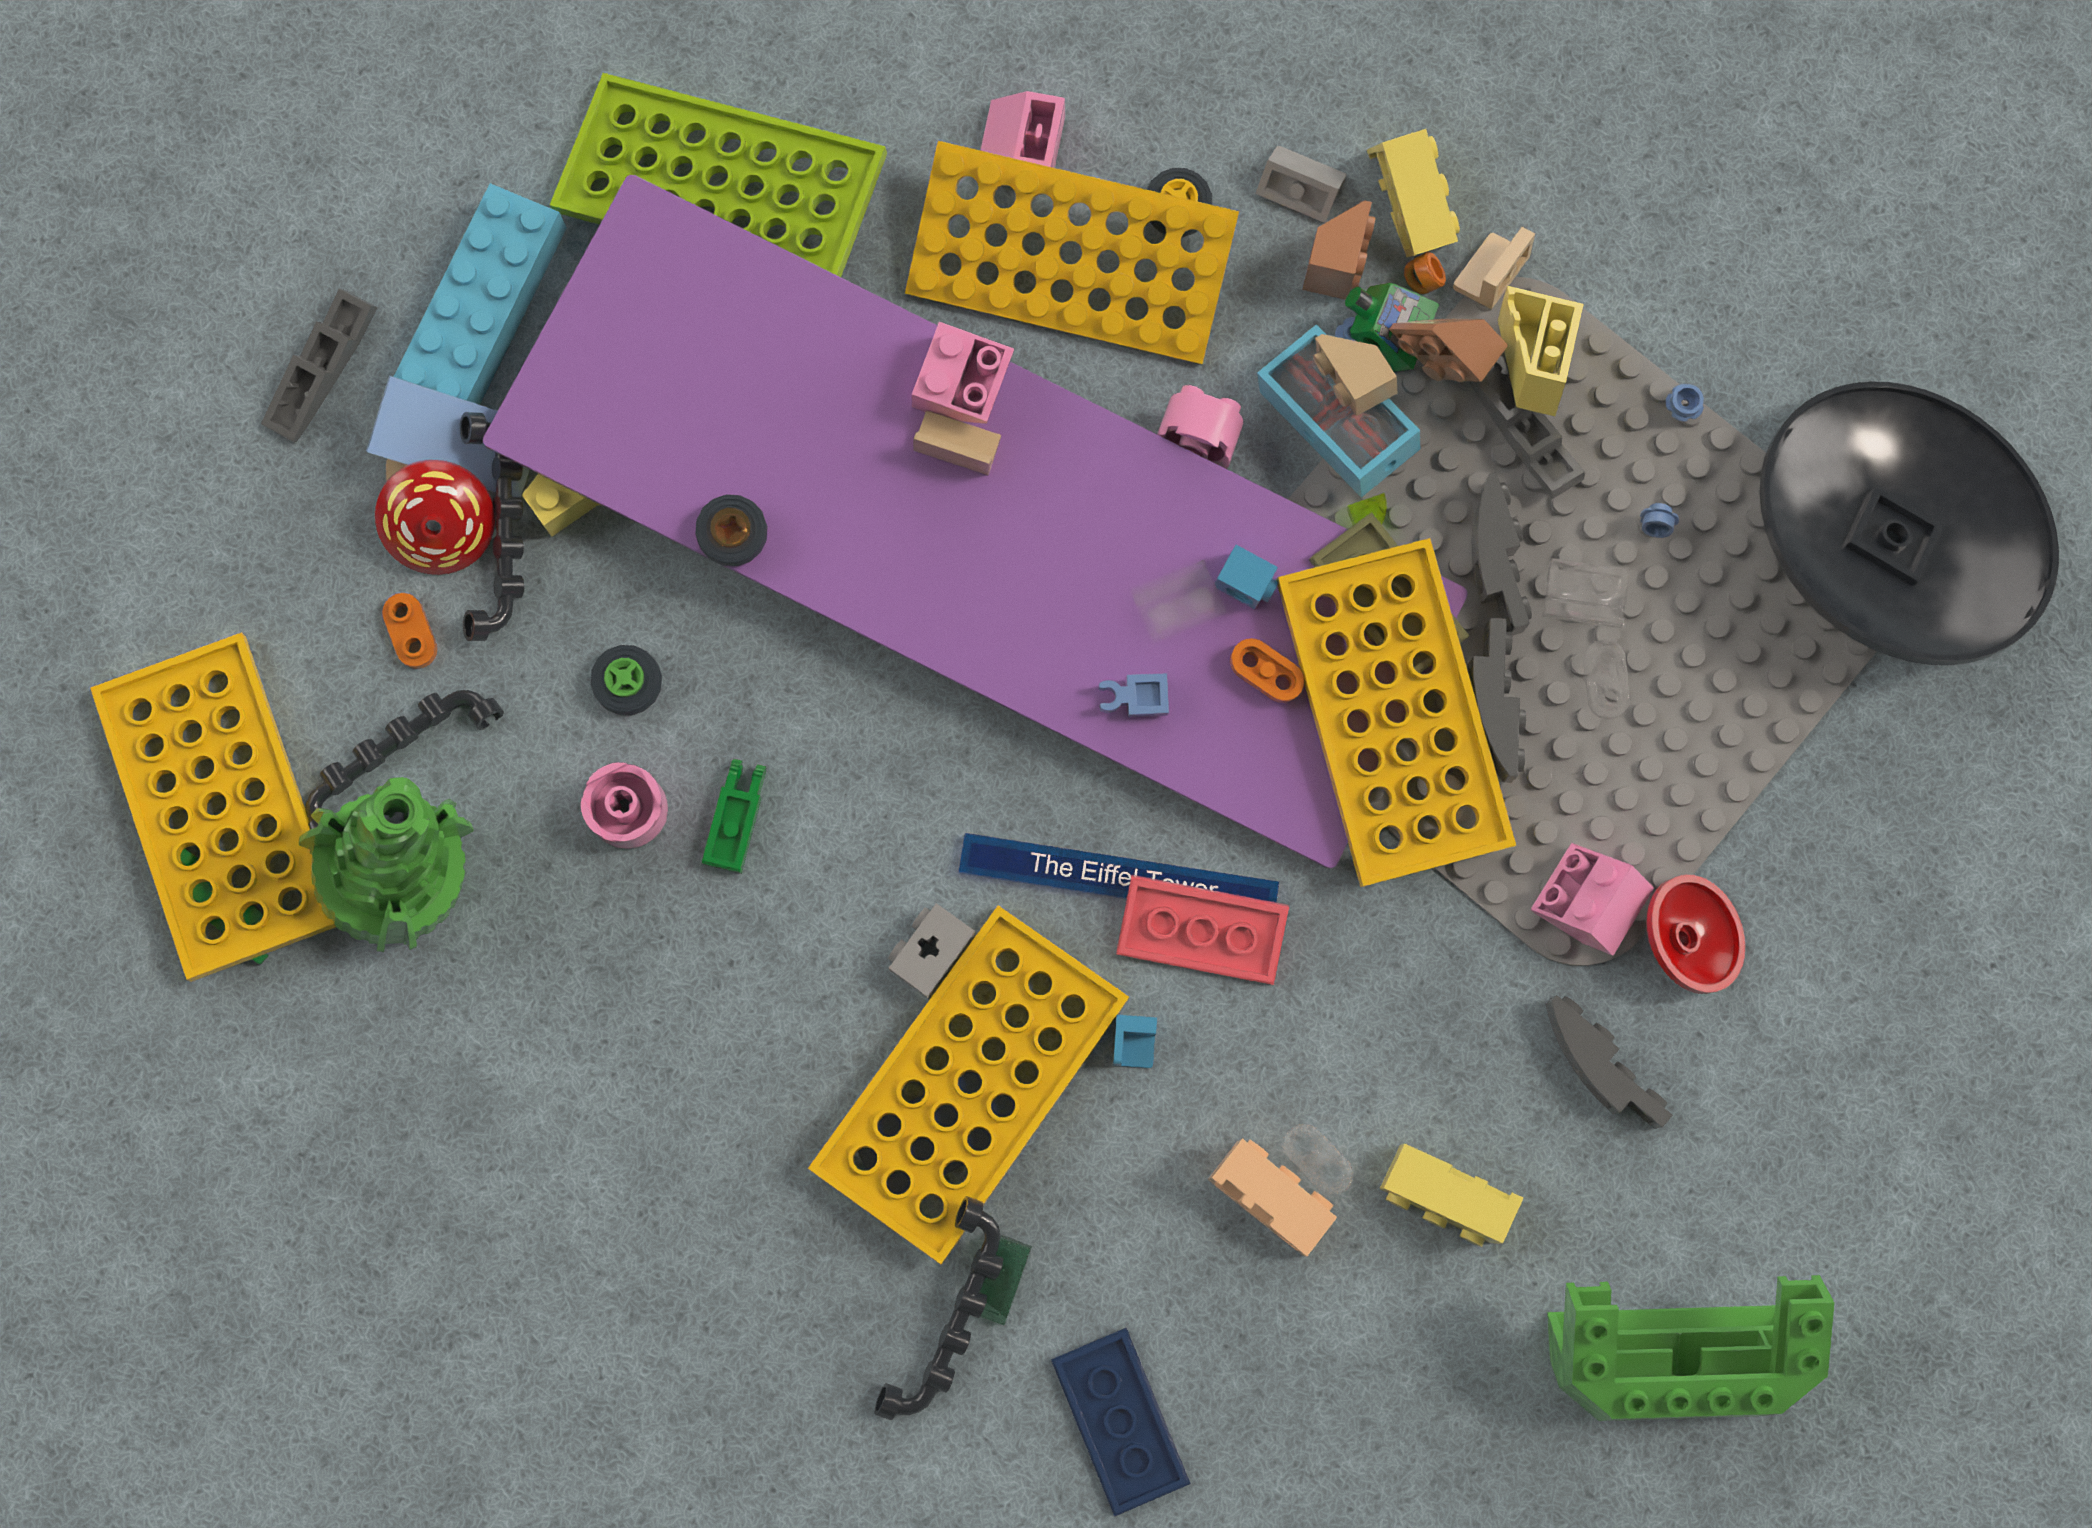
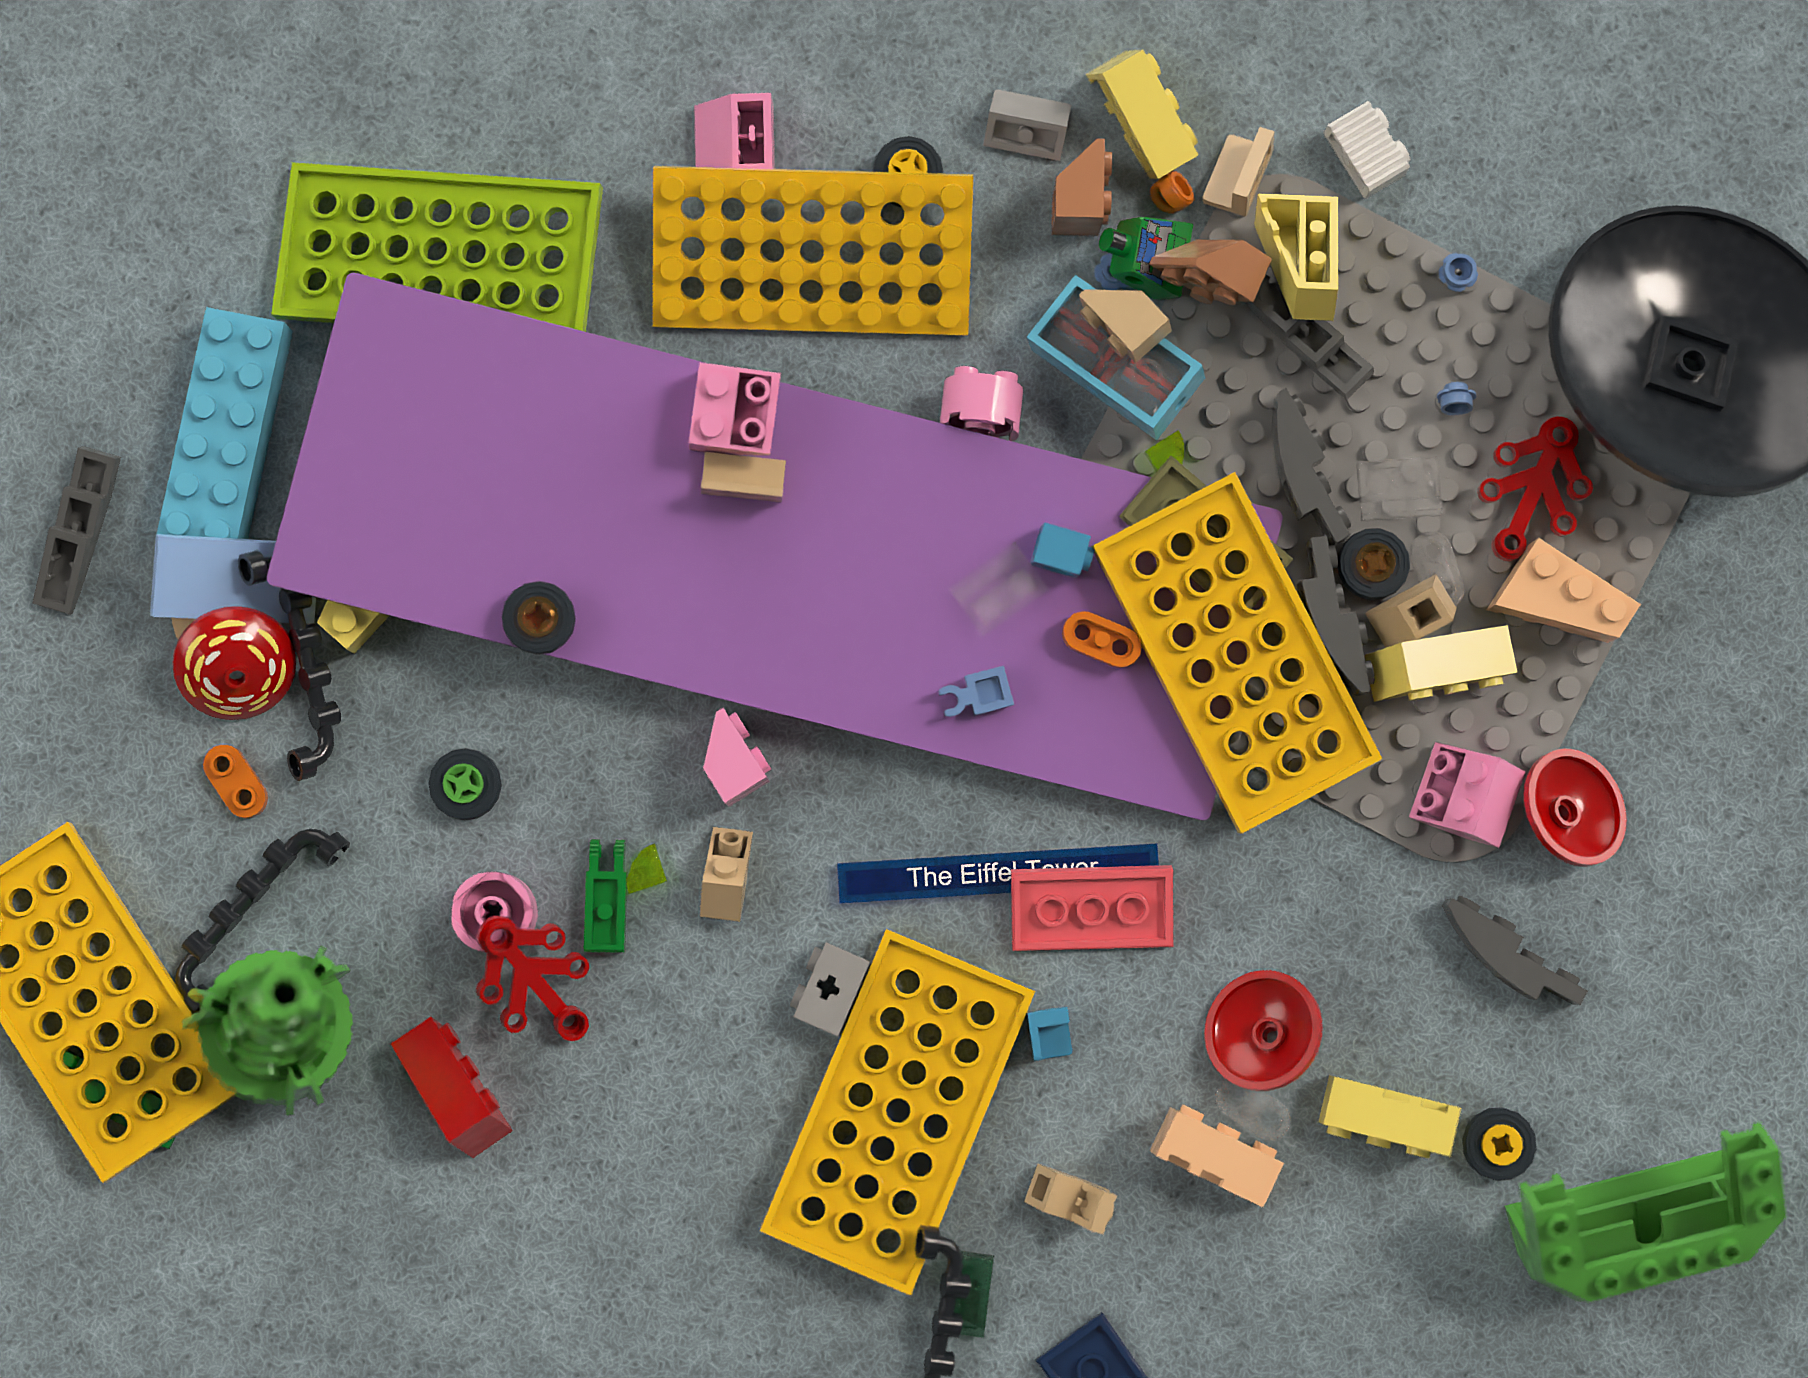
camera: 15 degrees left, 5 degrees up
(543, 964) = (451, 1087): none -> red wedge
(642, 868) = (528, 972): none -> red plant
(779, 800) = (646, 870): none -> clear neon green tile
(855, 819) = (726, 874): none -> tan slope
(883, 711) = (730, 762): none -> bright pink slope
(1119, 1206) = (1071, 1198): none -> tan brick
(1332, 1066) = (1243, 1018): none -> red dish
(1535, 1248) = (1485, 1137): none -> black wheel
(1555, 647) = (1381, 551): none -> black wheel
(1574, 711) = (1413, 613): none -> tan slope
(1593, 766) = (1442, 663): none -> light yellow wedge
(1621, 271) = (1368, 149): none -> white brick
(1722, 615) = (1537, 481): none -> red plant
(1726, 727) = (1563, 595): none -> light nougat wedge

